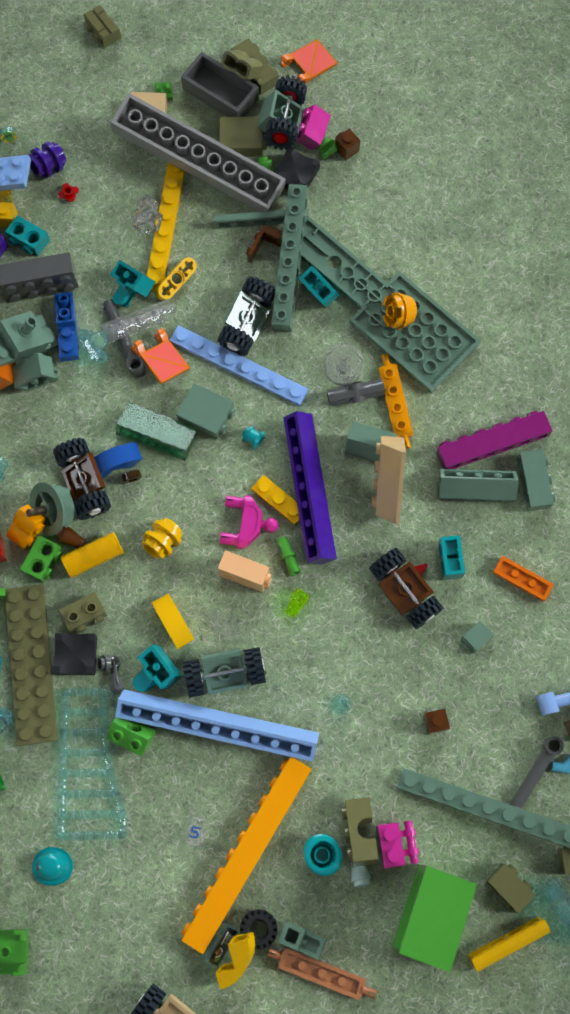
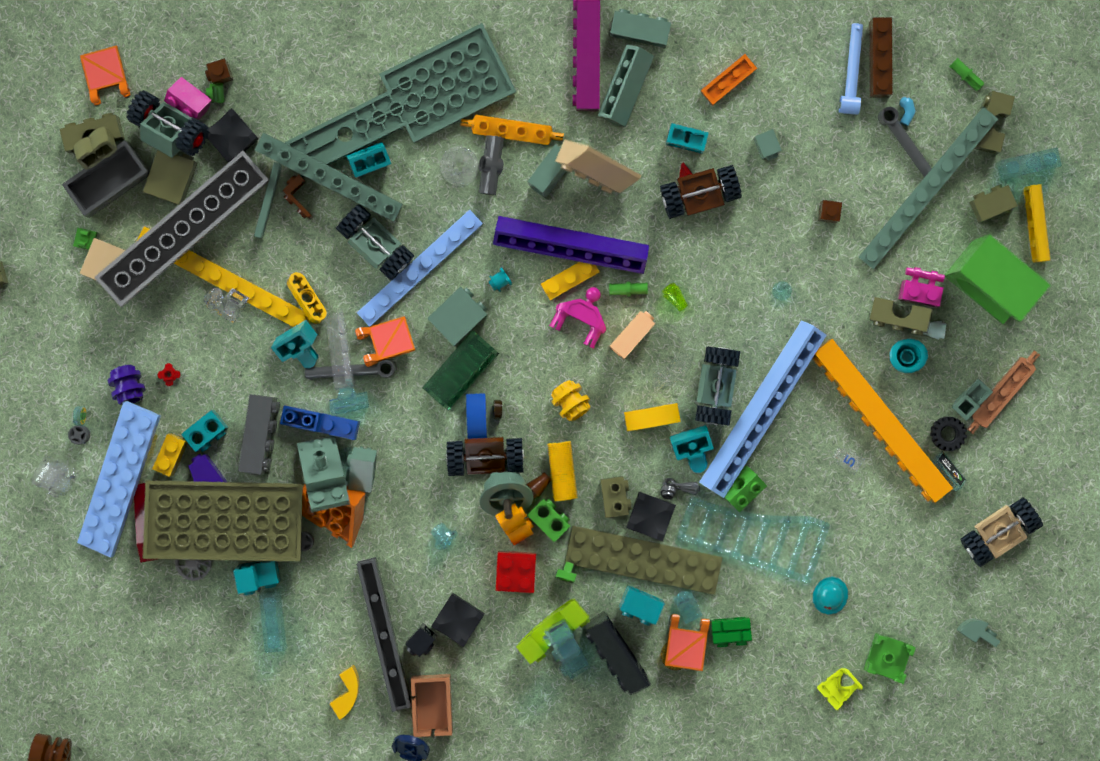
camera: 75 degrees left, 15 degrees up
(242, 952) = (963, 454): yellow brick -> none
(265, 162) = (209, 165): bright green plate -> none
(399, 310) = (427, 91): light orange cone -> none

